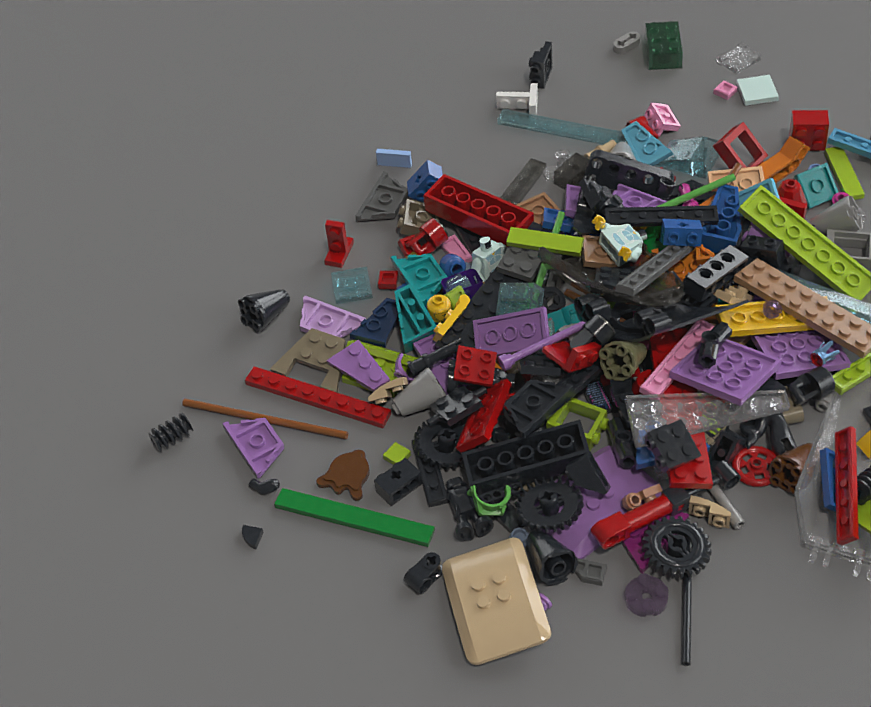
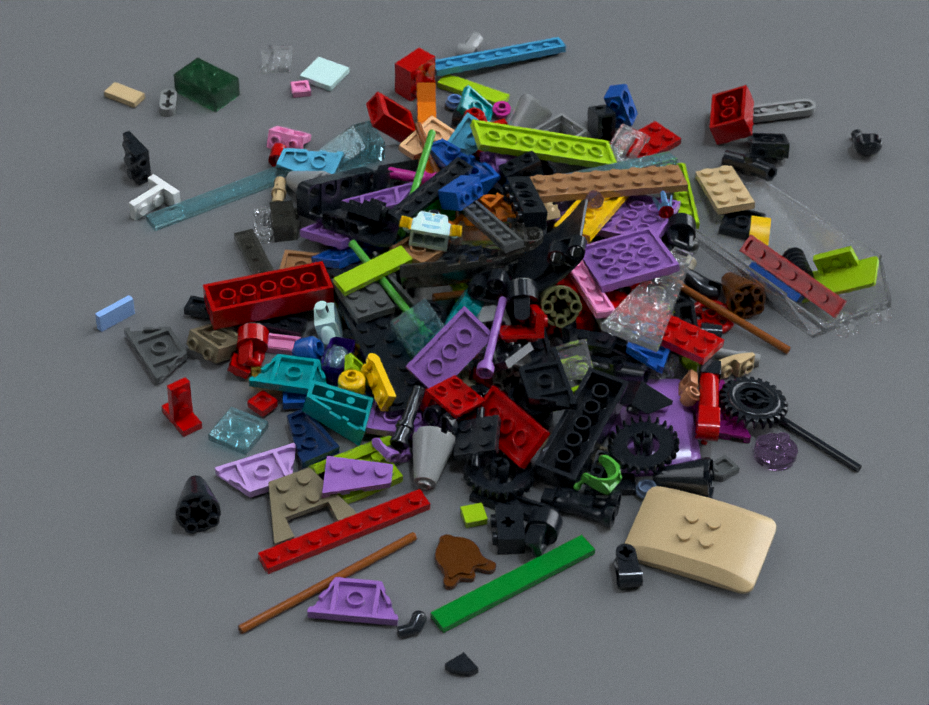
camera: 60 degrees left, 5 degrees down
(170, 431) = (275, 655): black piece -> none
(384, 392) = (400, 476): tan slope -> none
(416, 500) = (542, 529): none -> black piece
(423, 180) = (181, 307): blue brick -> none
(589, 407) = (575, 359): none -> clear plate
(608, 19) = (124, 94): none -> tan tile
(671, 446) = (679, 331): black plate -> none
(710, 344) = (601, 250): black piece -> none
(770, 515) = (735, 319): none -> dark orange piece

